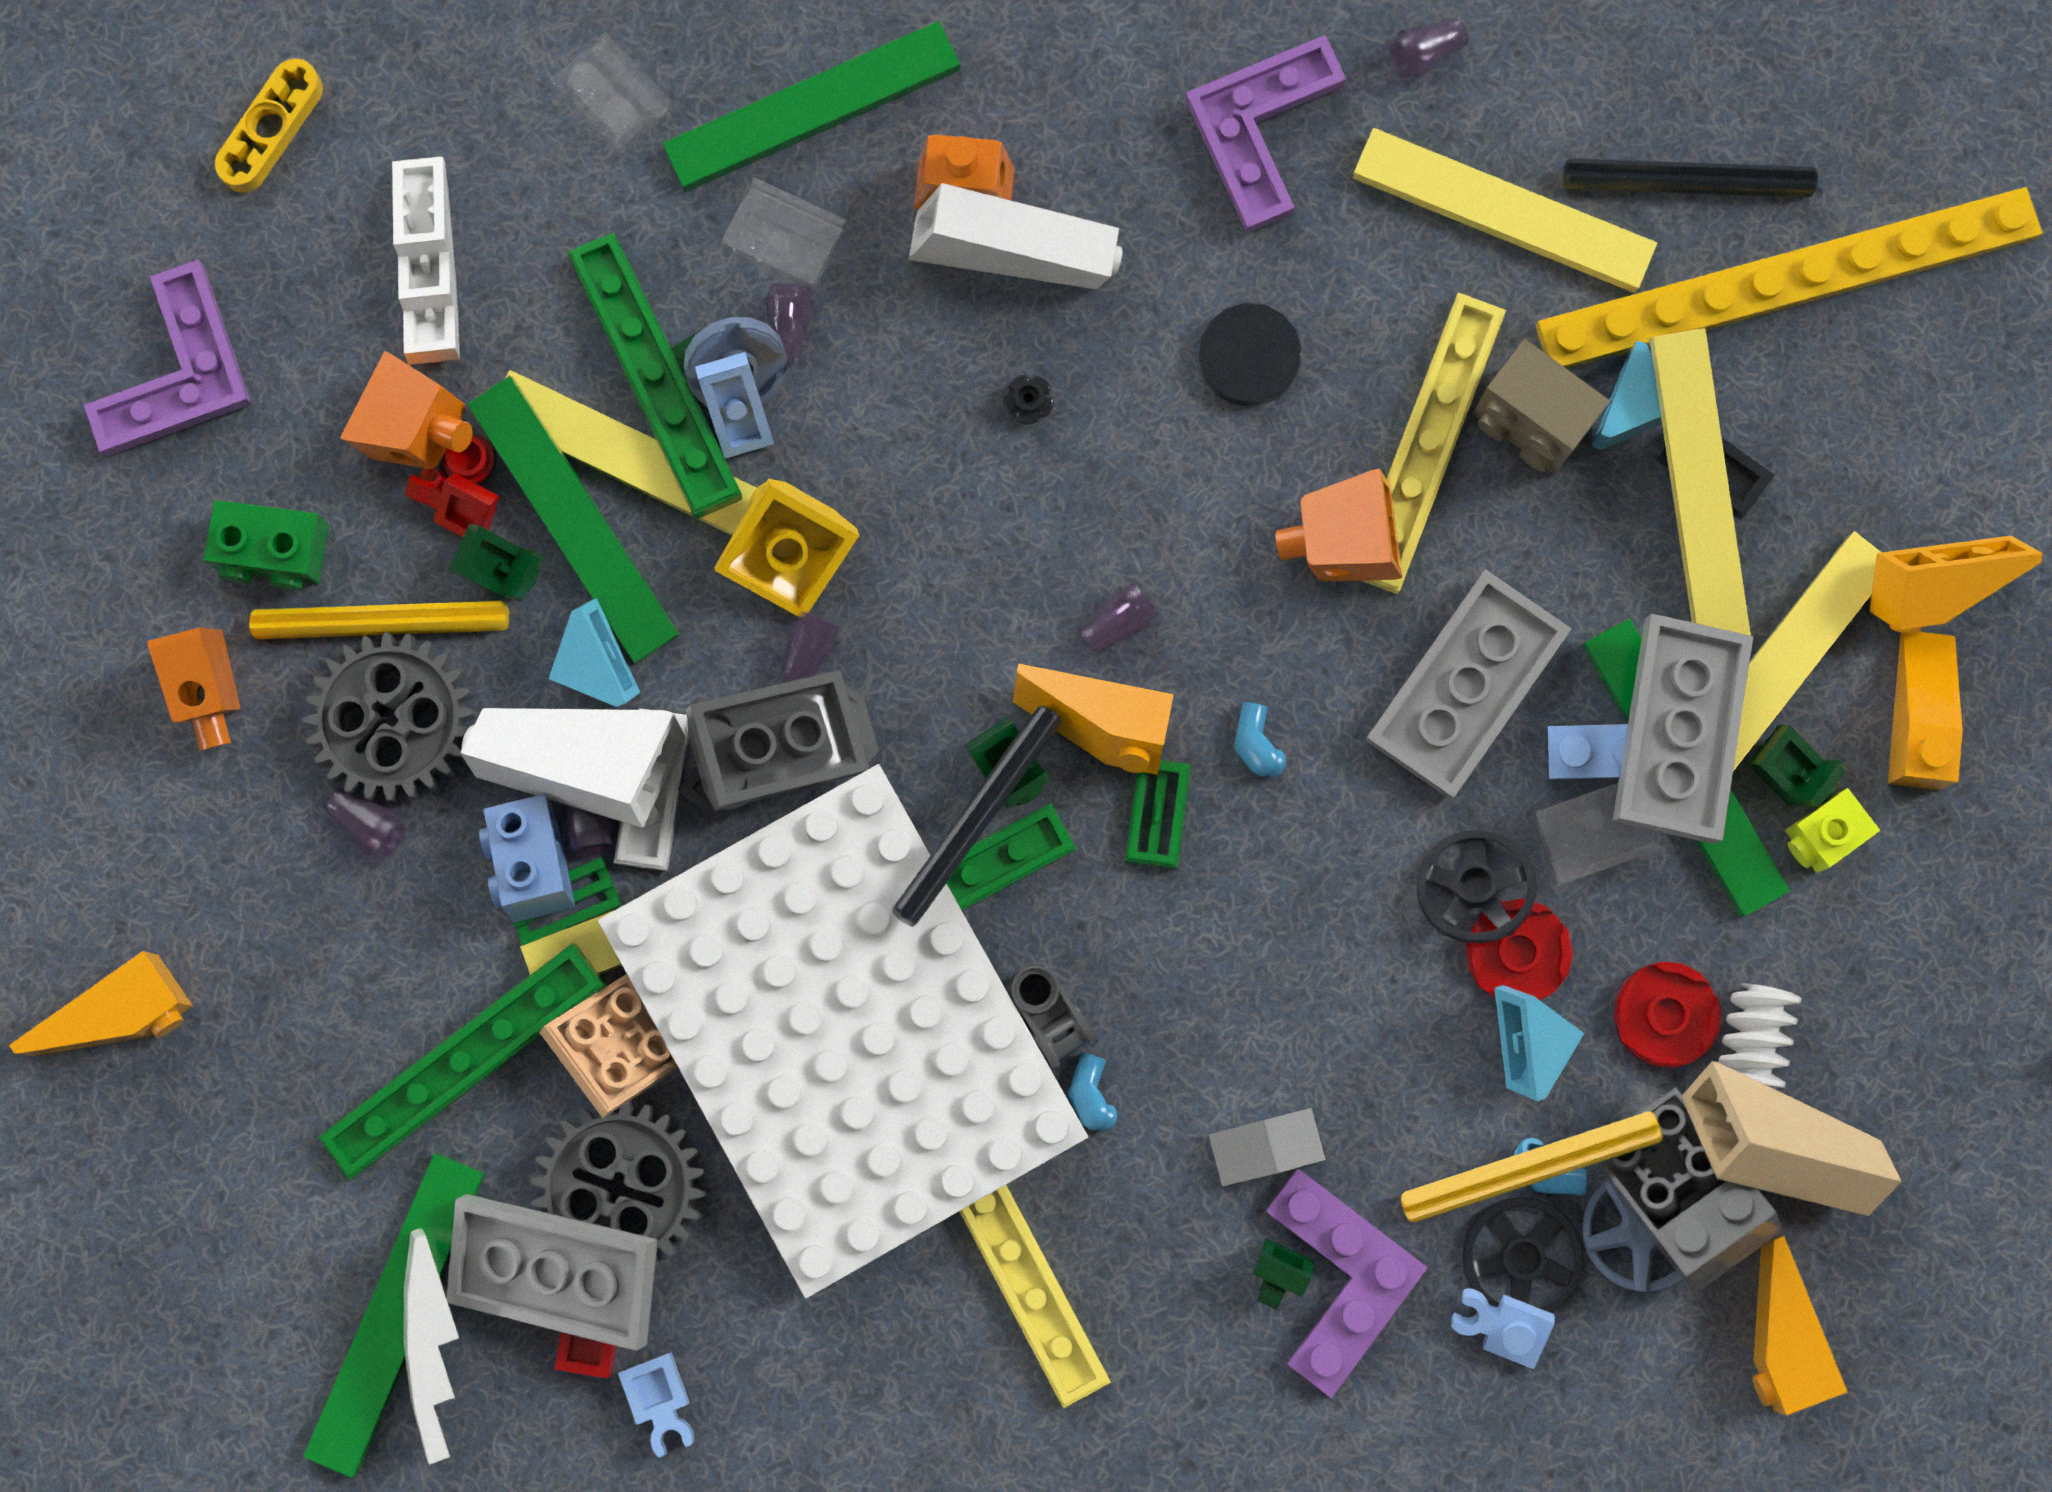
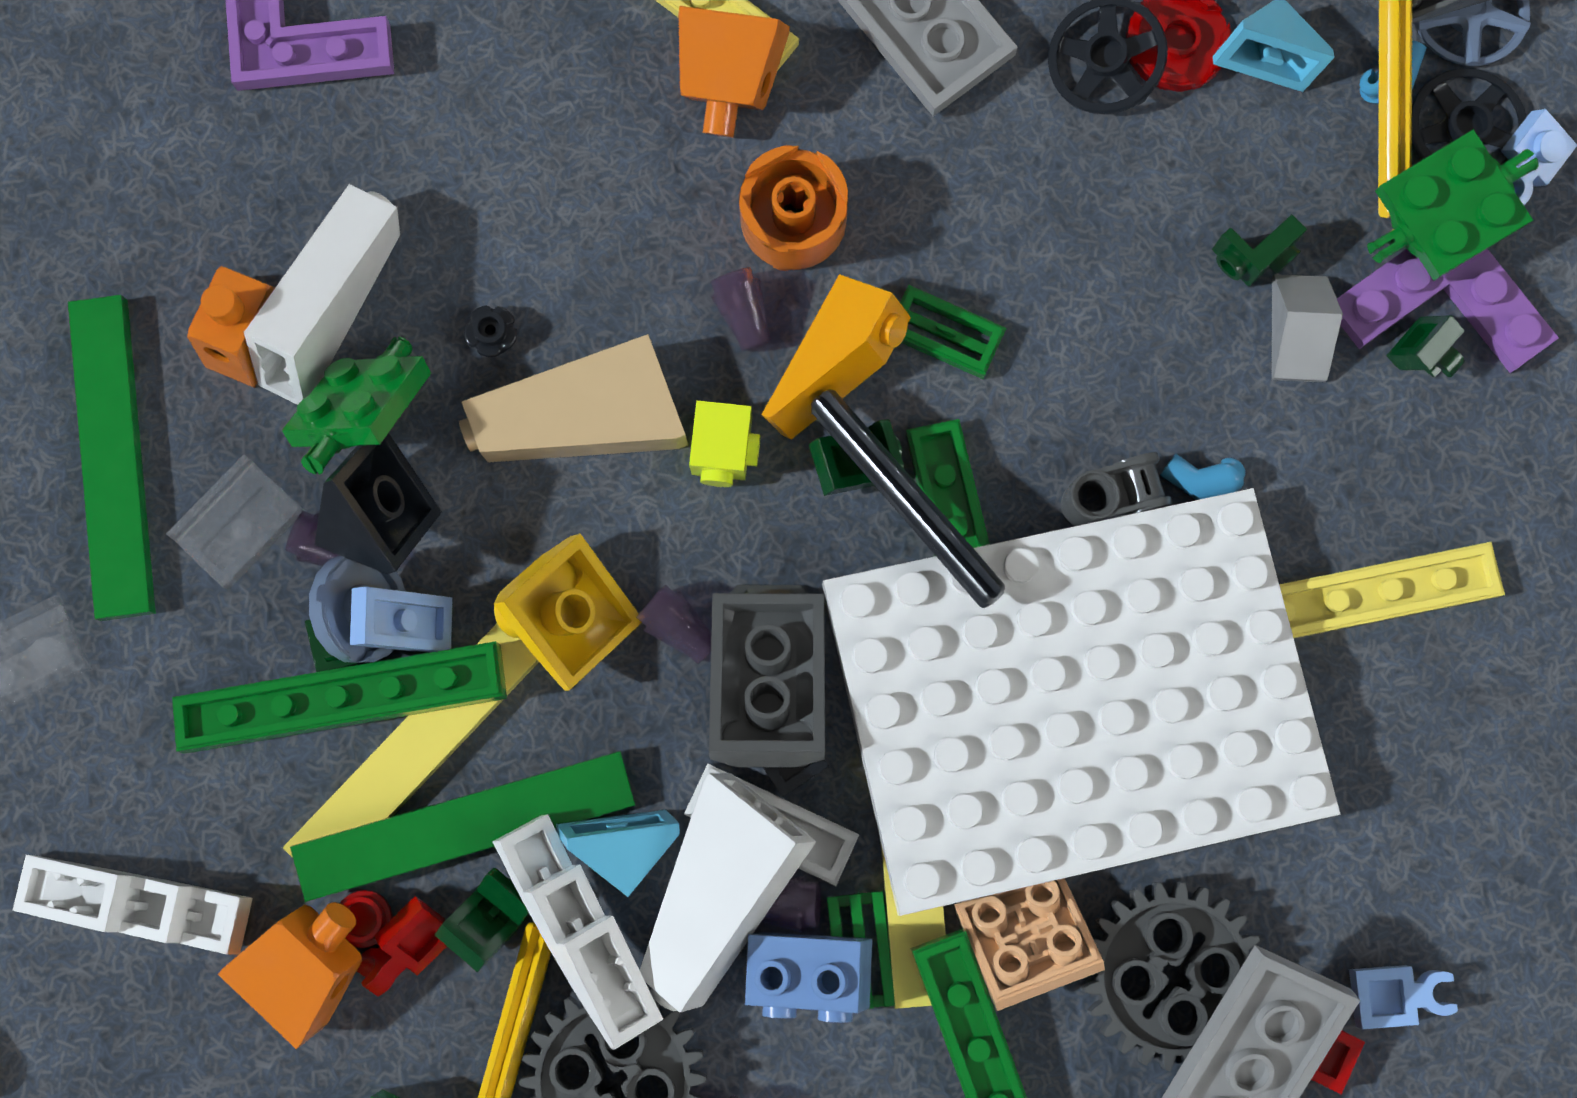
camera: 75 degrees left, 0 degrees up
(506, 644) = (578, 932): none -> white slope
(829, 349) = (374, 508): none -> black slope
(917, 301) = (356, 403): none -> green plate
(982, 507) = (578, 409): none -> tan slope
(984, 638) = (722, 443): none -> neon yellow brick
(1221, 605) = (805, 182): none -> orange brick
(1249, 354) = (517, 107): black tile -> none
(1253, 746) = (908, 220): dark azure arm -> none
(1328, 1098) = (1249, 264): none -> dark green bracket
(1424, 1255) = (1453, 205): none -> green plate

